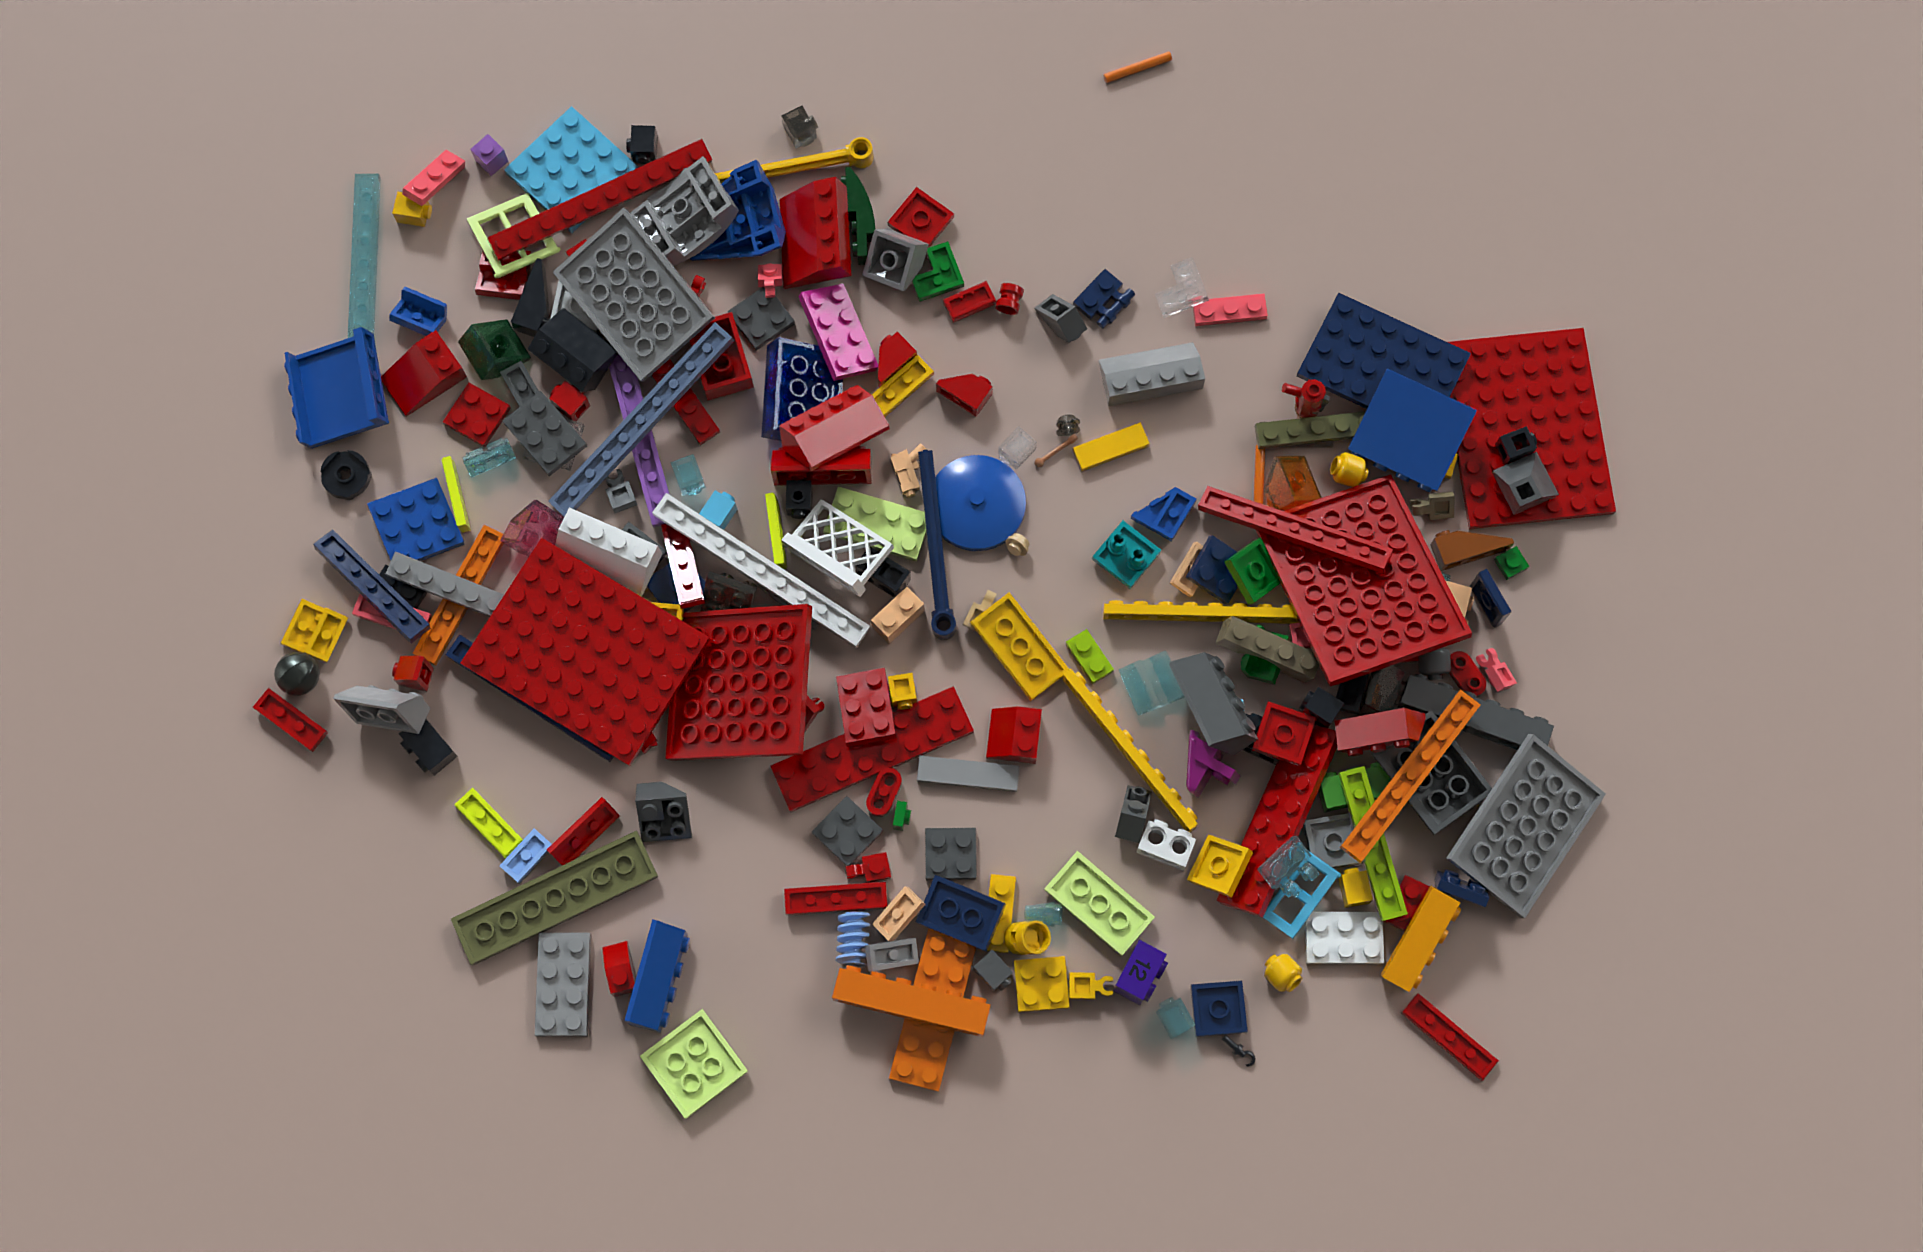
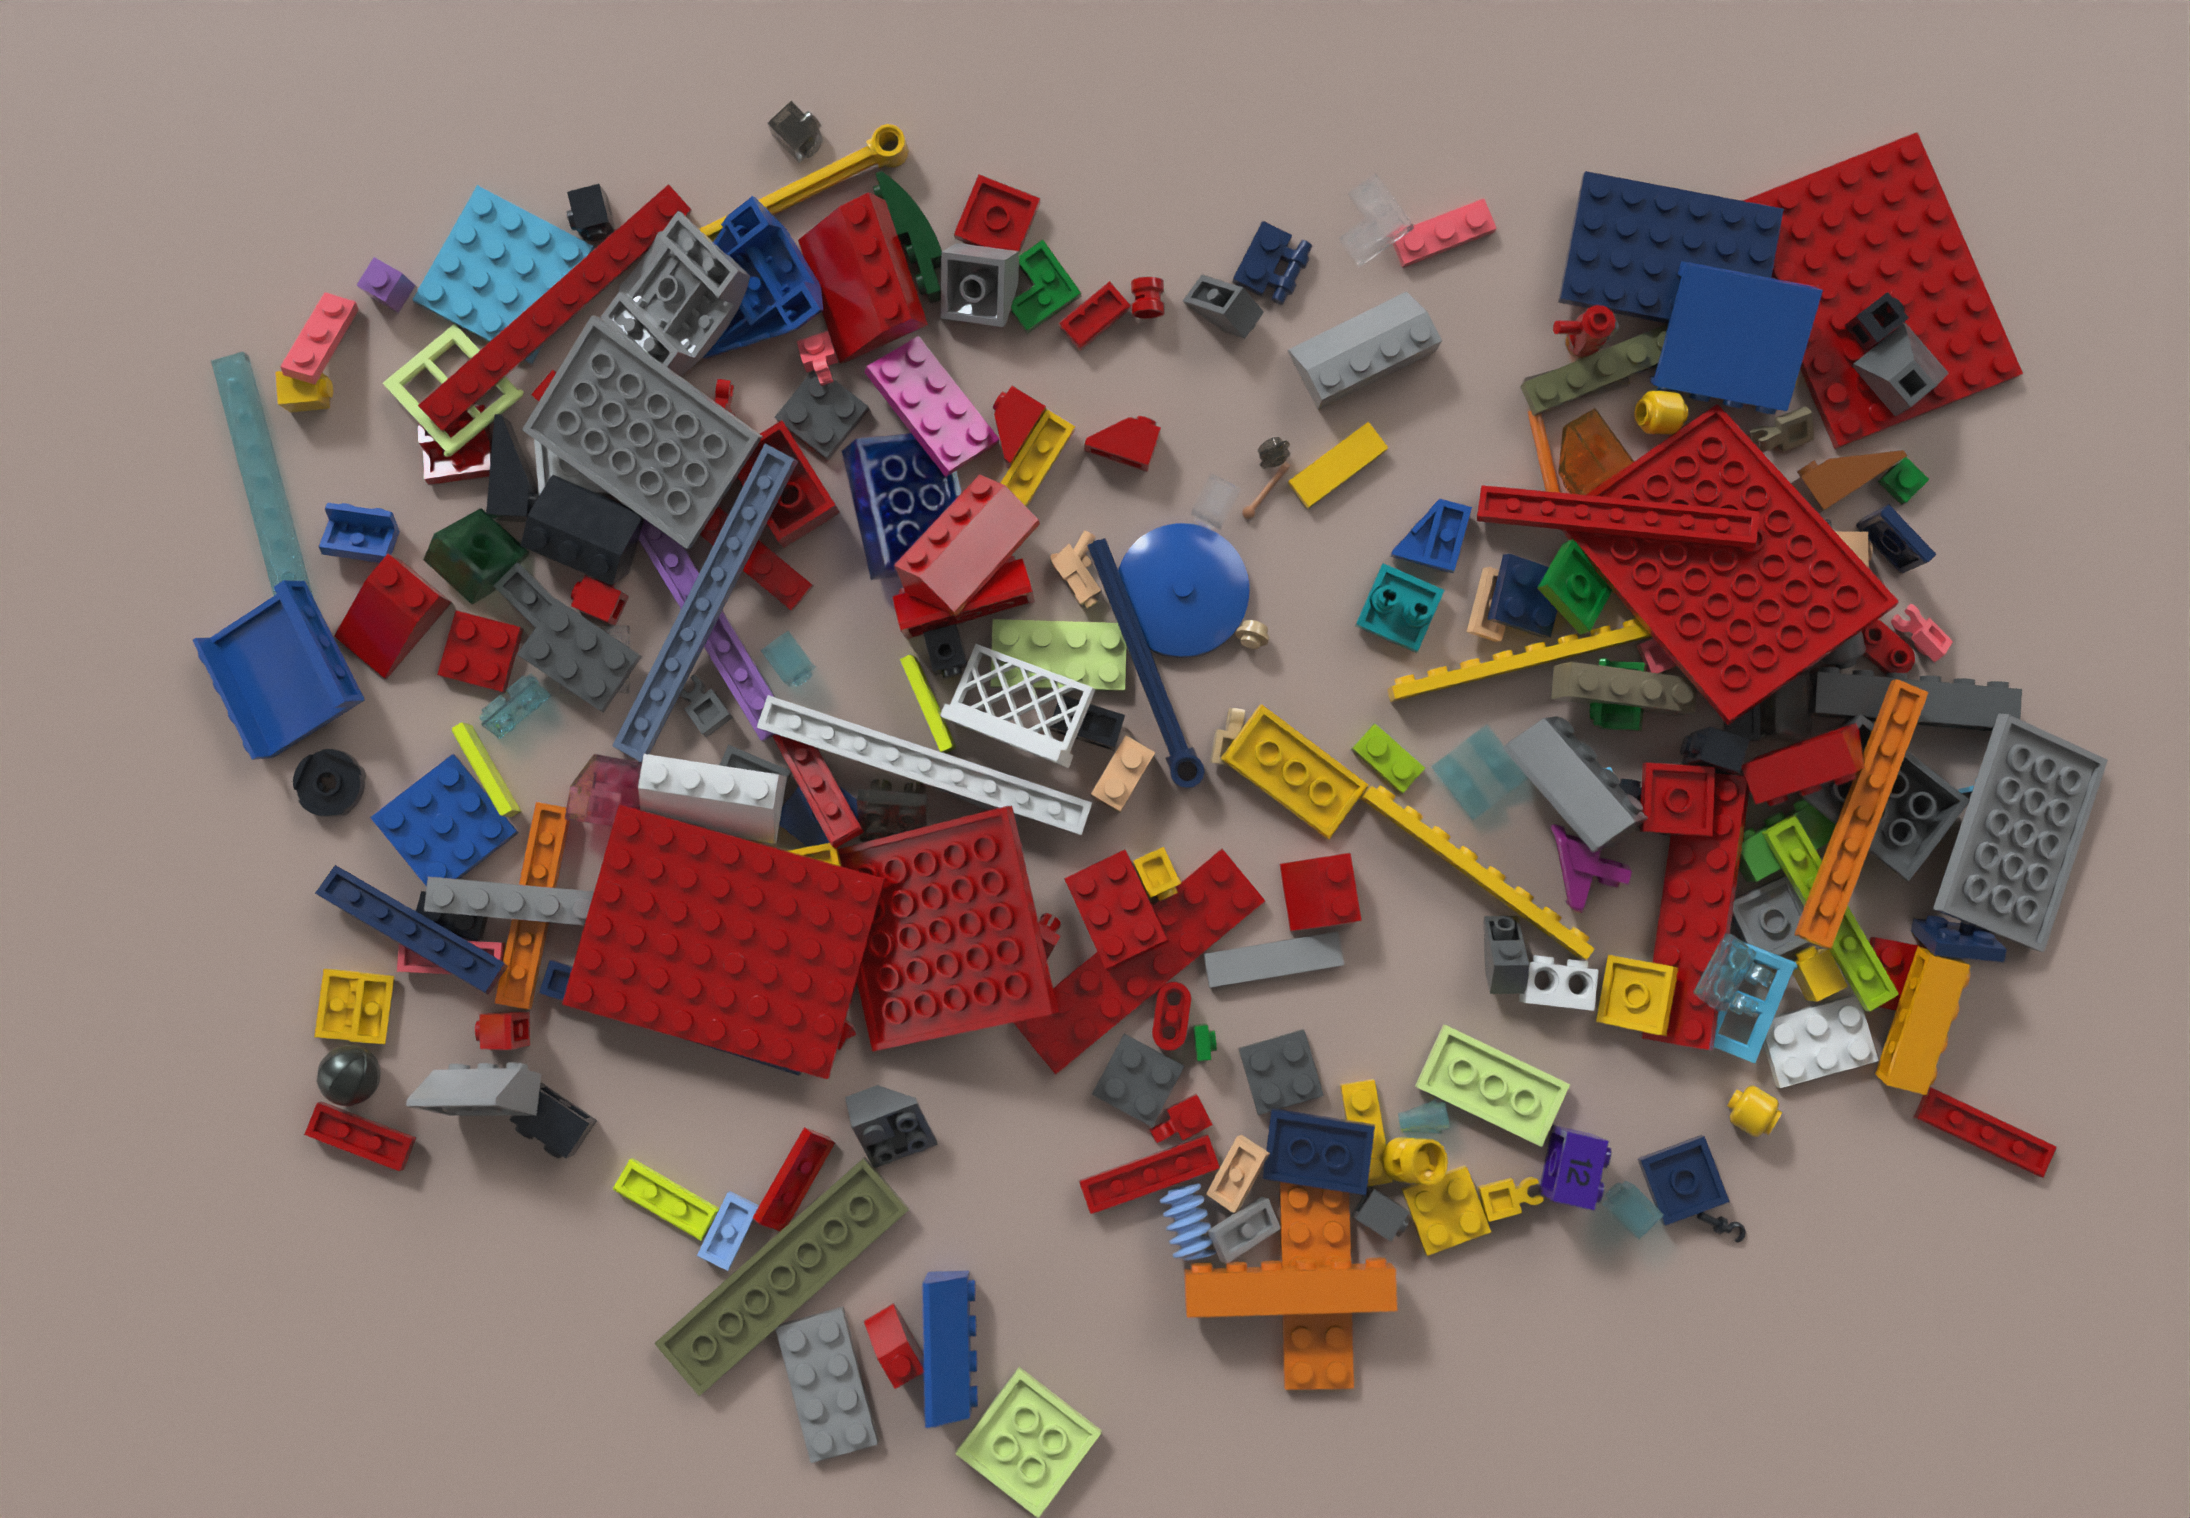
camera: 15 degrees left, 10 degrees up
(719, 509) = (844, 696): medium azure brick -> none

